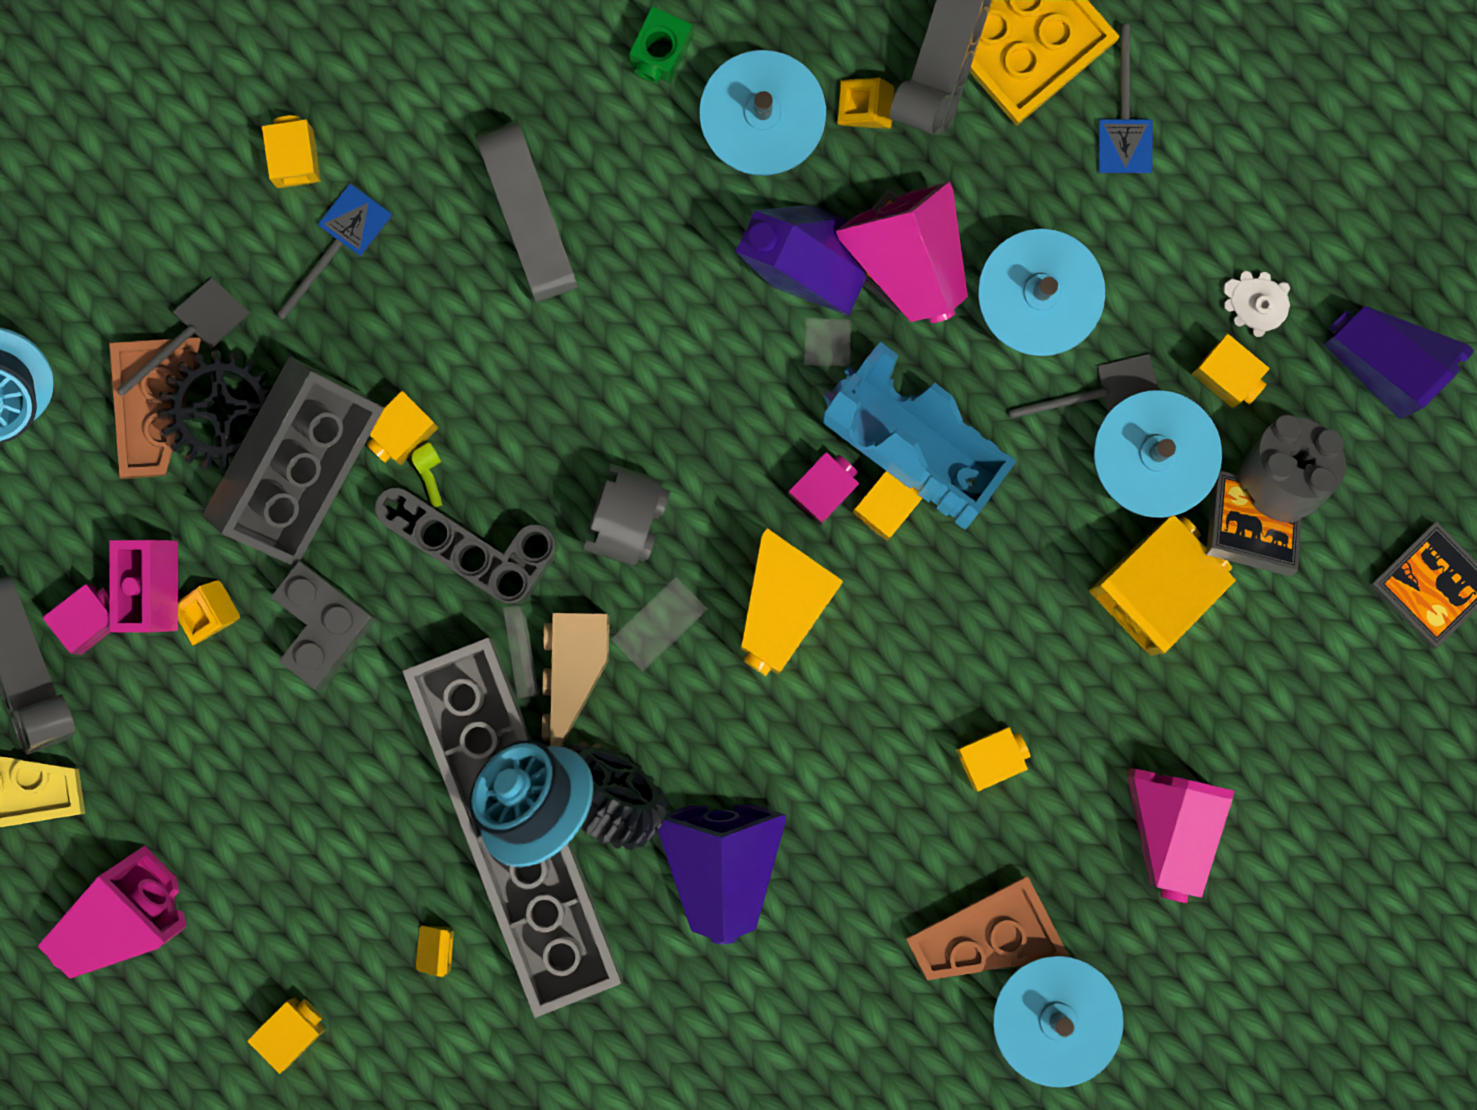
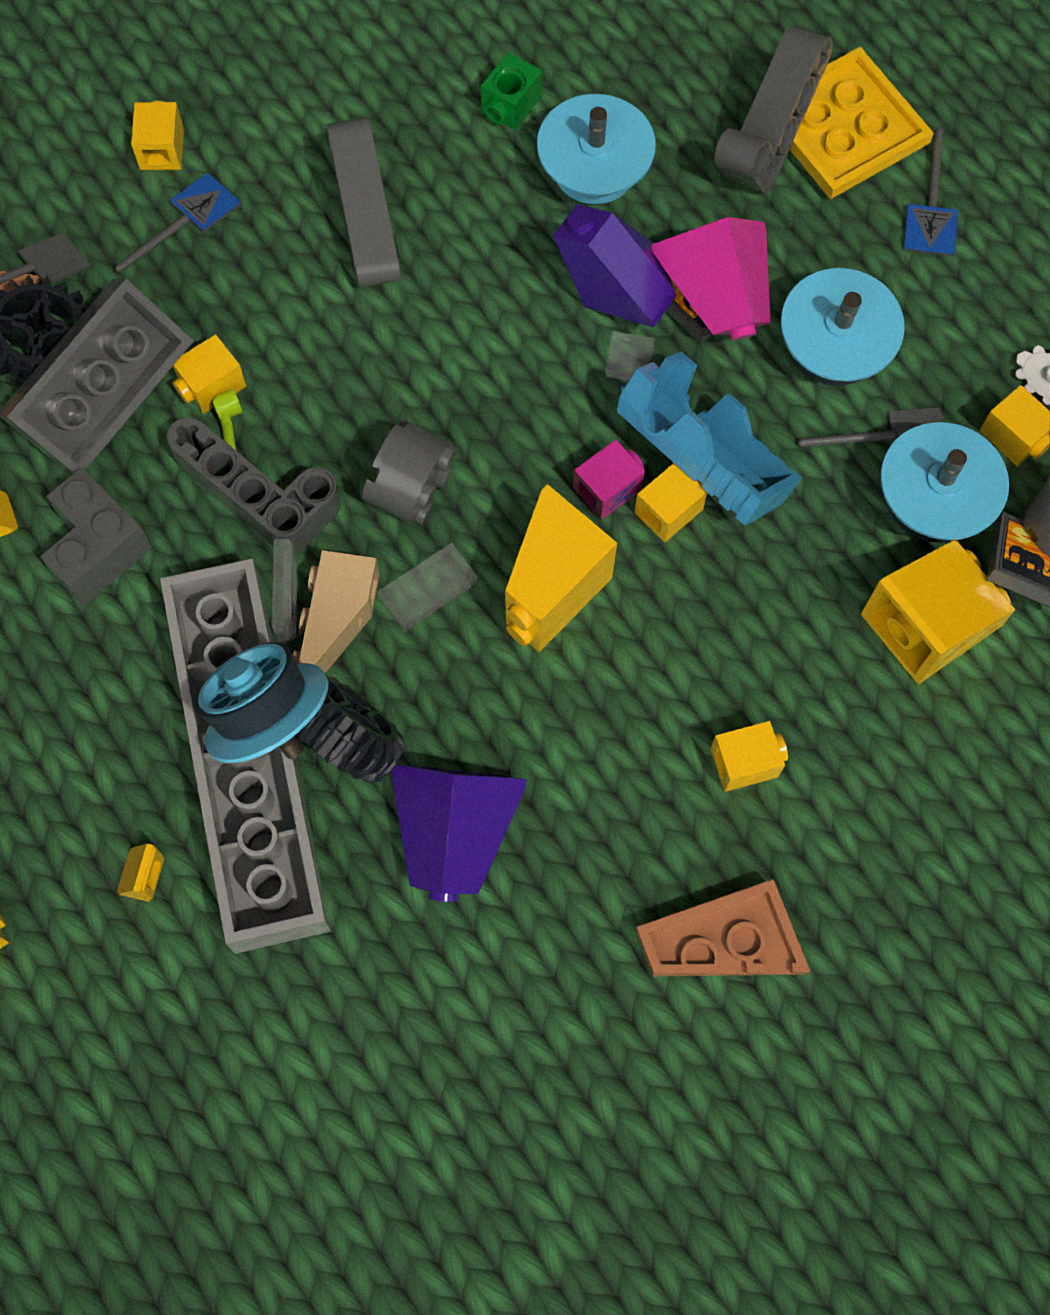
camera: 10 degrees right, 15 degrees down
(865, 103) = (692, 165): yellow slope -> none
(1058, 1021) = (792, 1032): medium azure piece -> none
(1178, 830) = (938, 848): dark pink slope -> none

